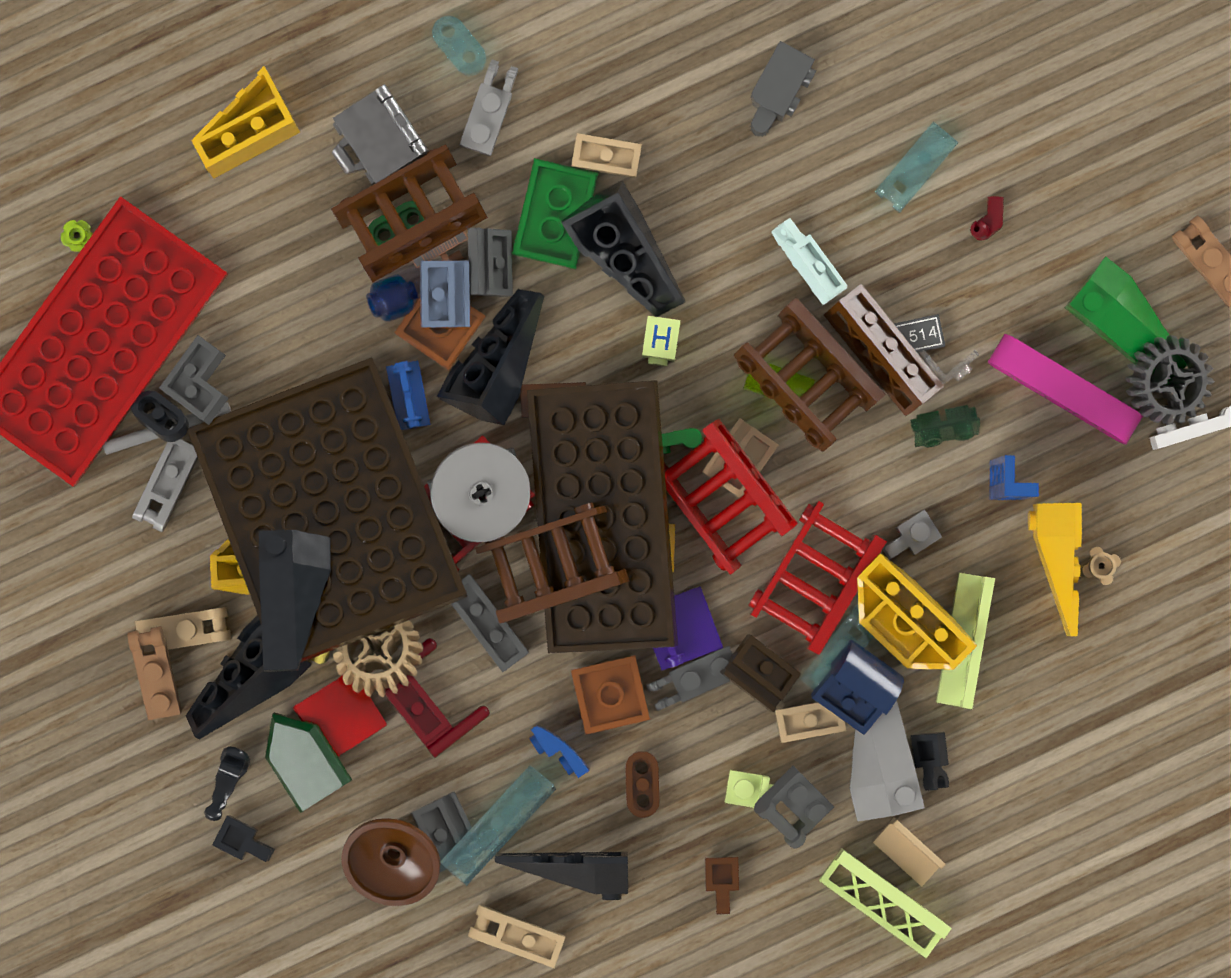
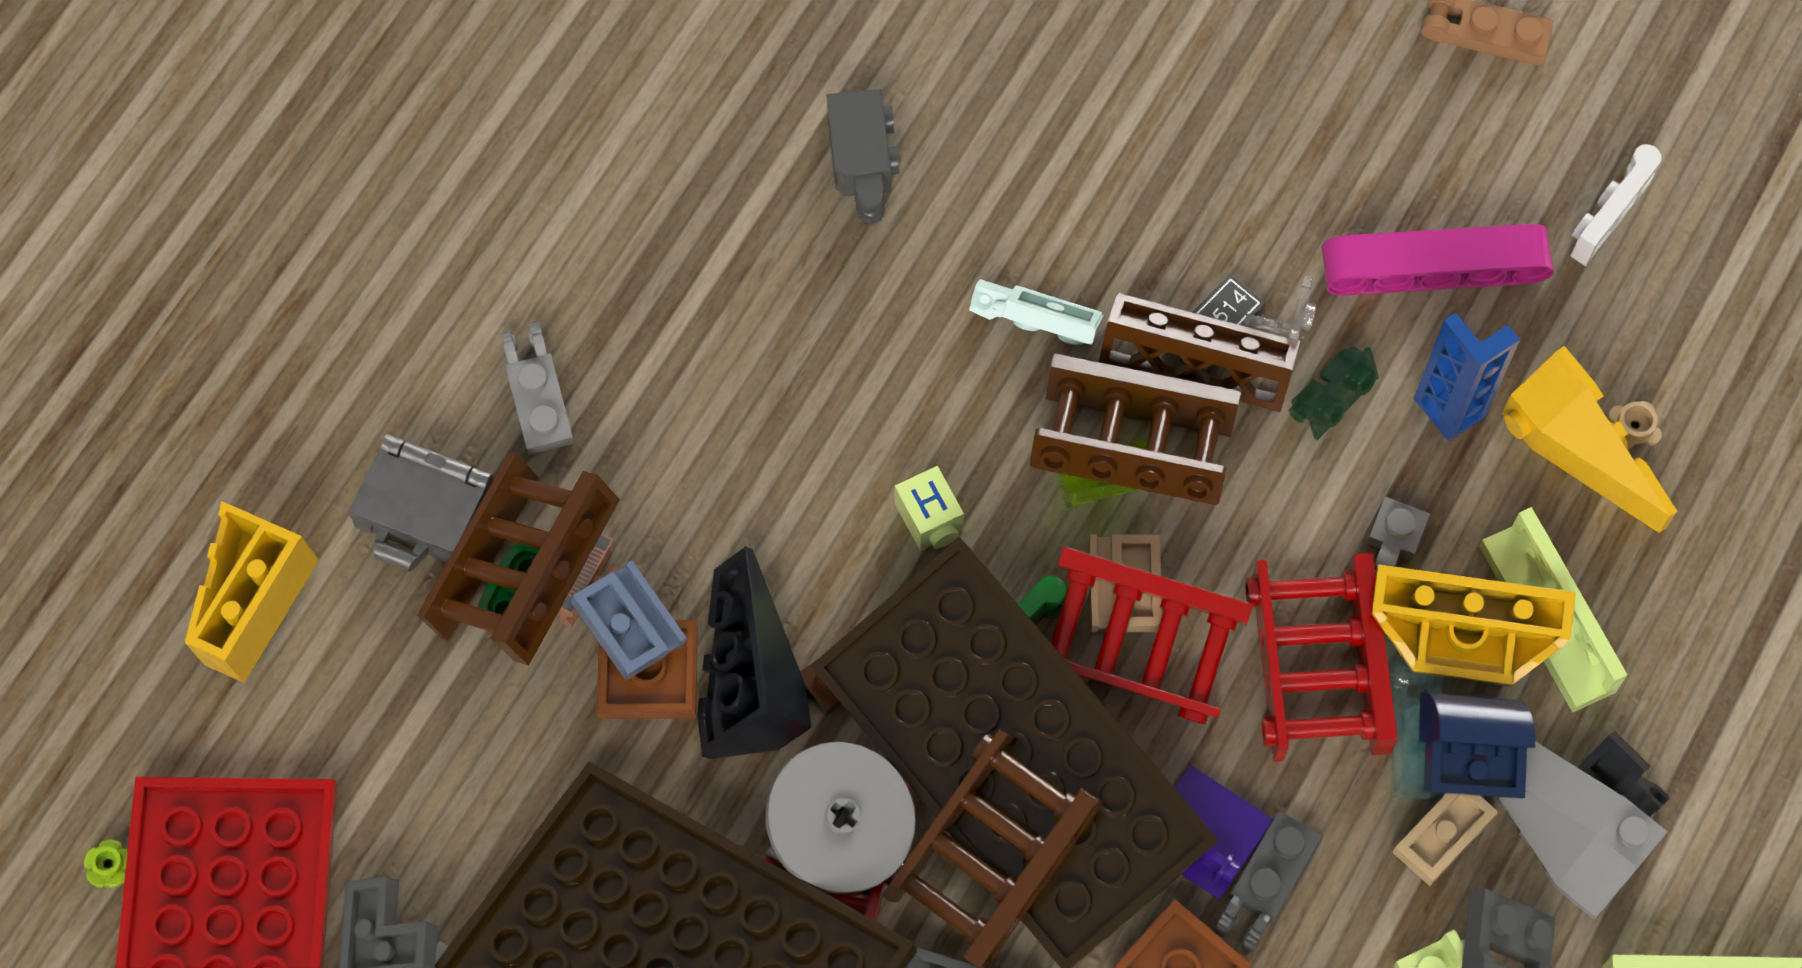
camera: 35 degrees left, 20 degrees down
(391, 297) = (564, 675): clear blue head -> none
(408, 394) = (664, 776): blue hinge -> none
(458, 45) = (447, 344): clear light blue plate -> none
(490, 262) = (659, 553): dark grey plate -> none
(550, 197) = (698, 456): green tile -> none
(606, 155) = (713, 350): tan plate -> none
(619, 240) = (801, 433): black wedge -> none
(760, 673) = (1342, 814): dark brown plate -> none
(908, 852) = (1686, 906): tan panel -> none
(917, 166) = (1082, 137): clear light blue plate -> none
(991, 222) = (1211, 140): dark red arm -> none
(1118, 312) = (1437, 149): green wedge -> none
(1160, 357) = (1571, 177): flat silver gear -> none

